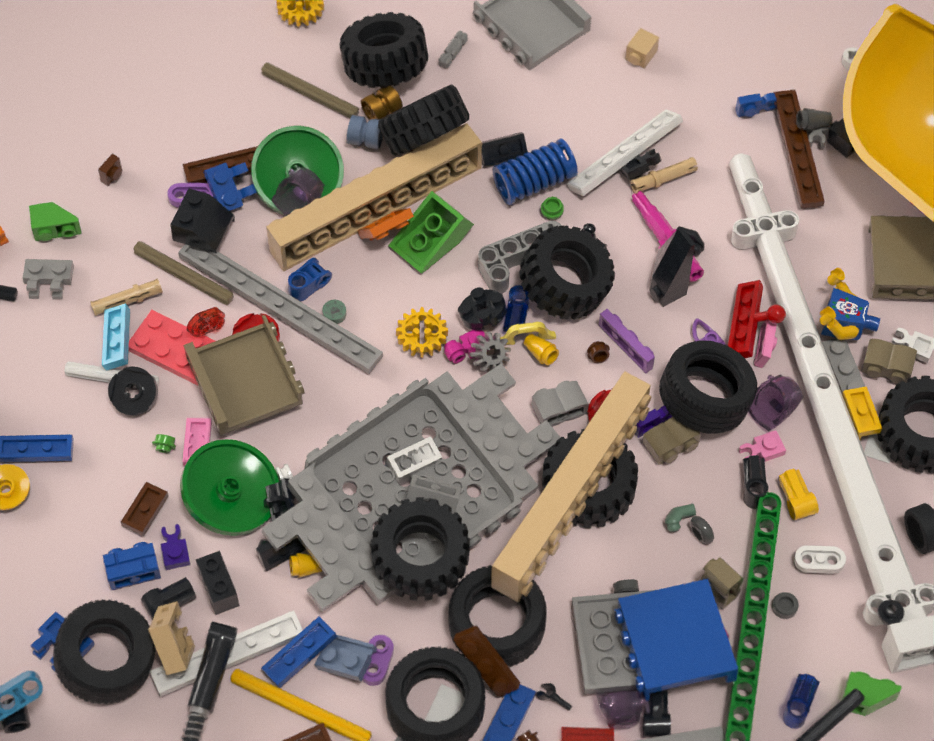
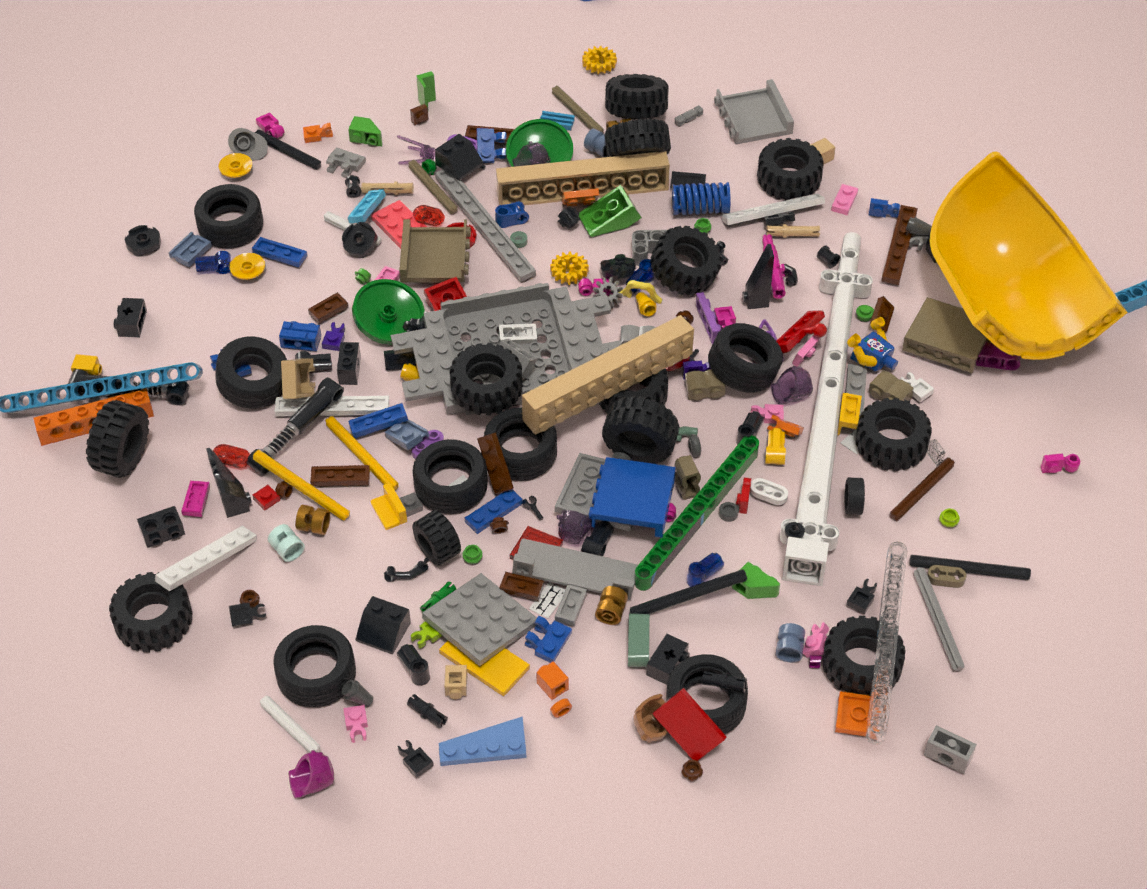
camera: 25 degrees right, 10 degrees down
(80, 311) = (353, 186): none -> black bush
(102, 131) = (426, 88): none -> bright green panel
(149, 225) = (426, 151): none -> clear purple plant
(164, 244) = (429, 166): none -> green plate
(290, 111) = (563, 119): none -> dark azure tile
(294, 437) = (444, 291): none -> red slope
(384, 258) = (568, 217): none -> black gear
(626, 66) = (794, 155): none -> black tyre
(642, 544) = (641, 429): none -> black tyre
(649, 331) = (725, 316): none -> dark pink plate
(700, 106) = (844, 199): none -> bright pink plate
(724, 197) = (828, 256): none -> black bush
(796, 582) = (743, 497): none -> red plate
(797, 459) = (790, 428): none -> orange plate
(804, 261) = (864, 313): none -> bright green plate
(827, 254) = (885, 310): none -> reddish brown plate

